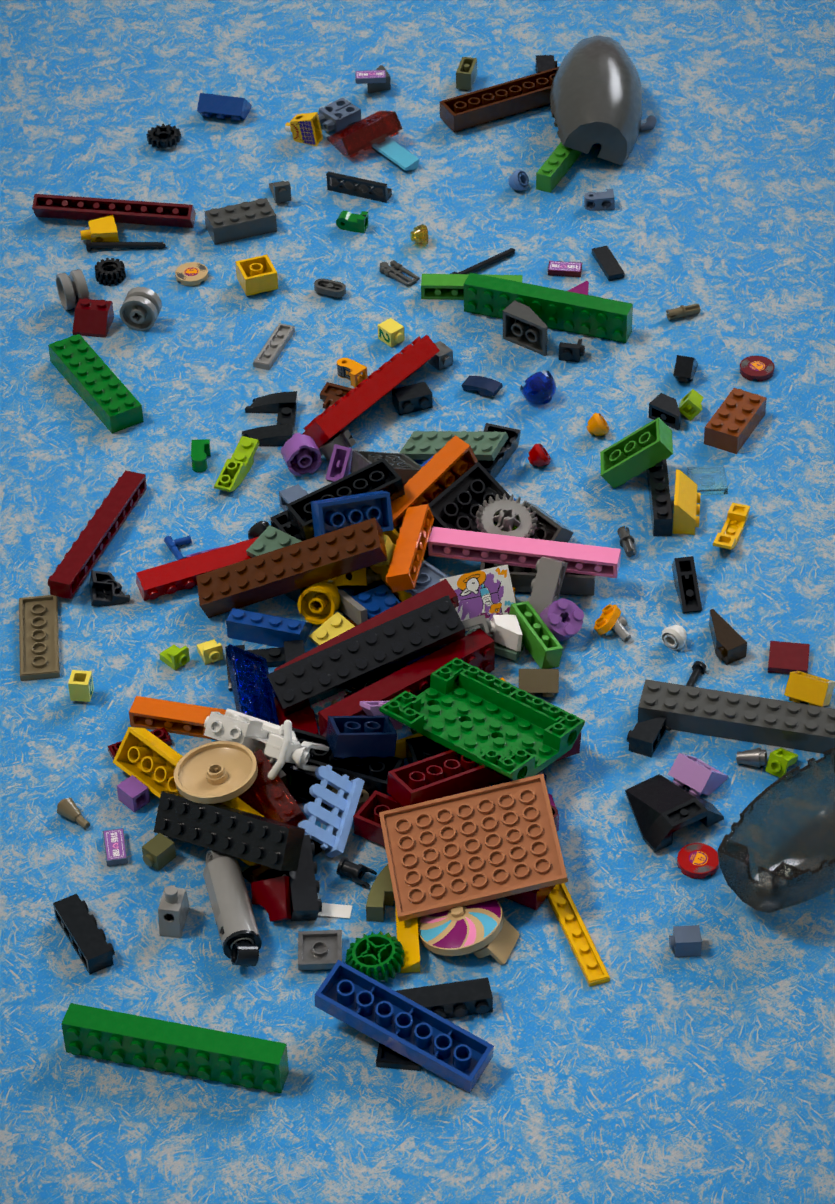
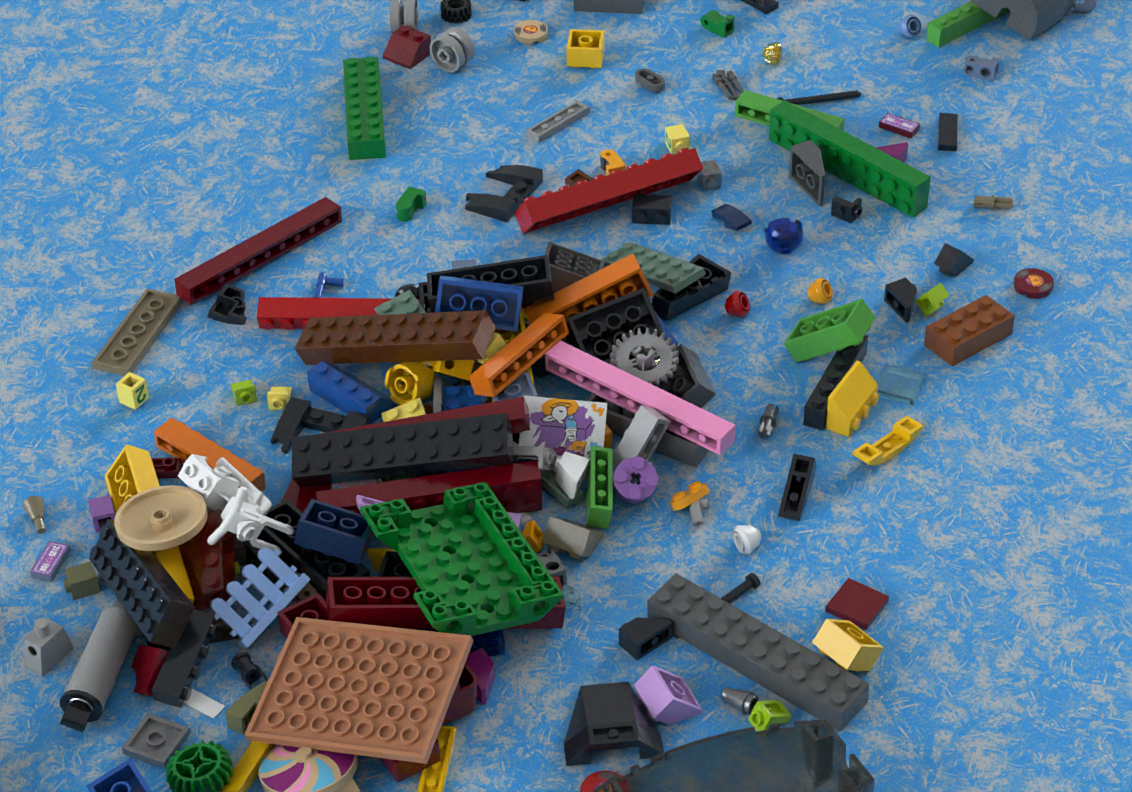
camera: 25 degrees right, 0 degrees up
(238, 466) = (433, 228): lime slope -> none
(251, 684) = (270, 456): clear blue bracket -> none
(301, 454) = (499, 231): medium lavender brick -> none
(340, 463) = (534, 247): medium lavender slope -> none
(342, 438) = (544, 233): flat silver leg -> none
(727, 642) = (798, 561): dark brown slope -> none

